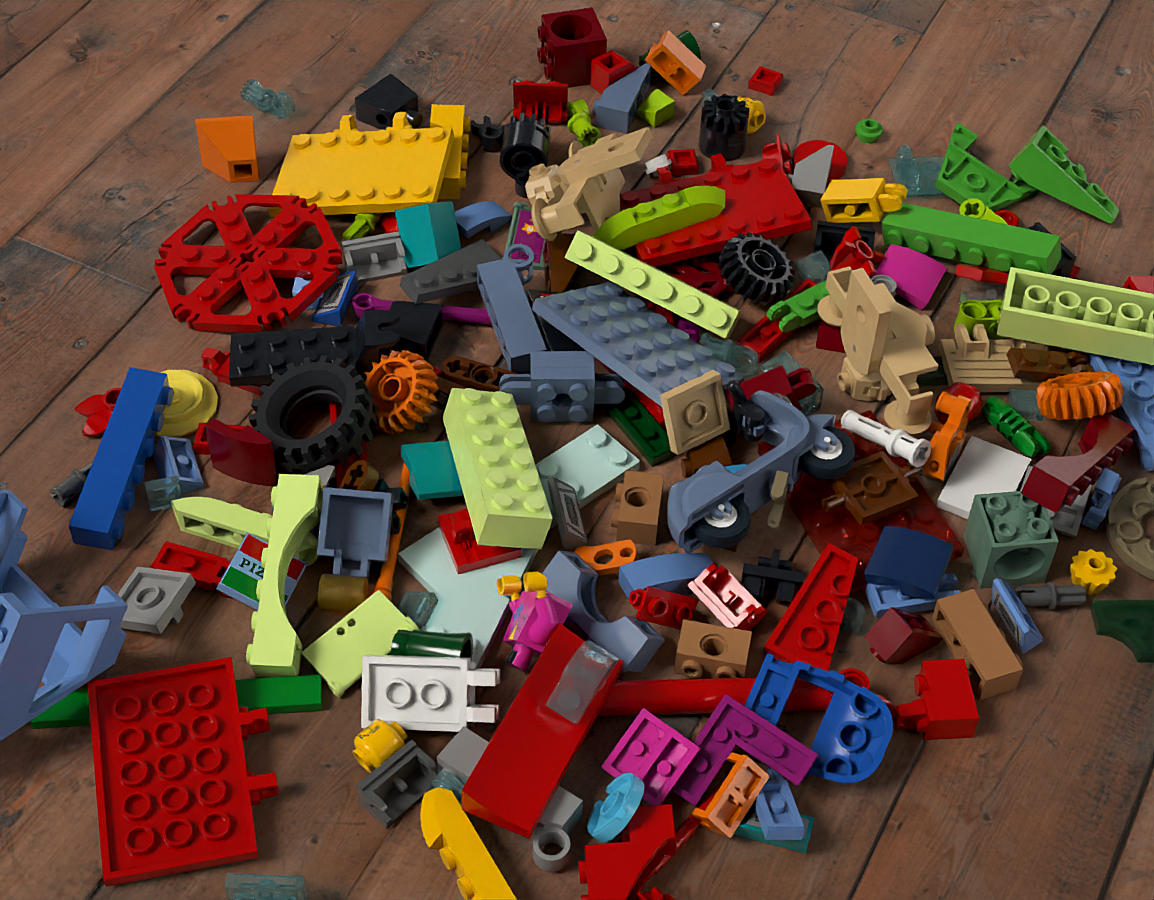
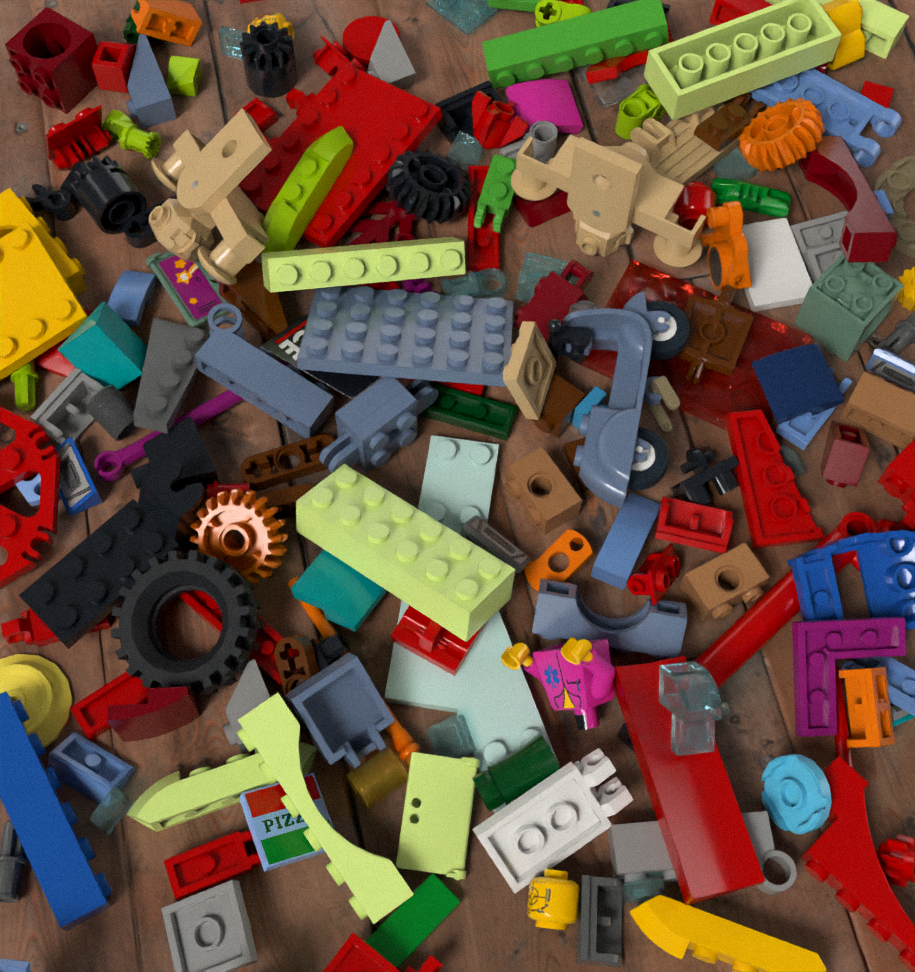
camera: 40 degrees left, 15 degrees up
(393, 267) = (112, 412): none -> dark grey piece
(653, 754) = (773, 721): dark pink slope -> none
(861, 200) = (453, 58): yellow hinge -> none
(896, 441) = (697, 279): white pin -> none

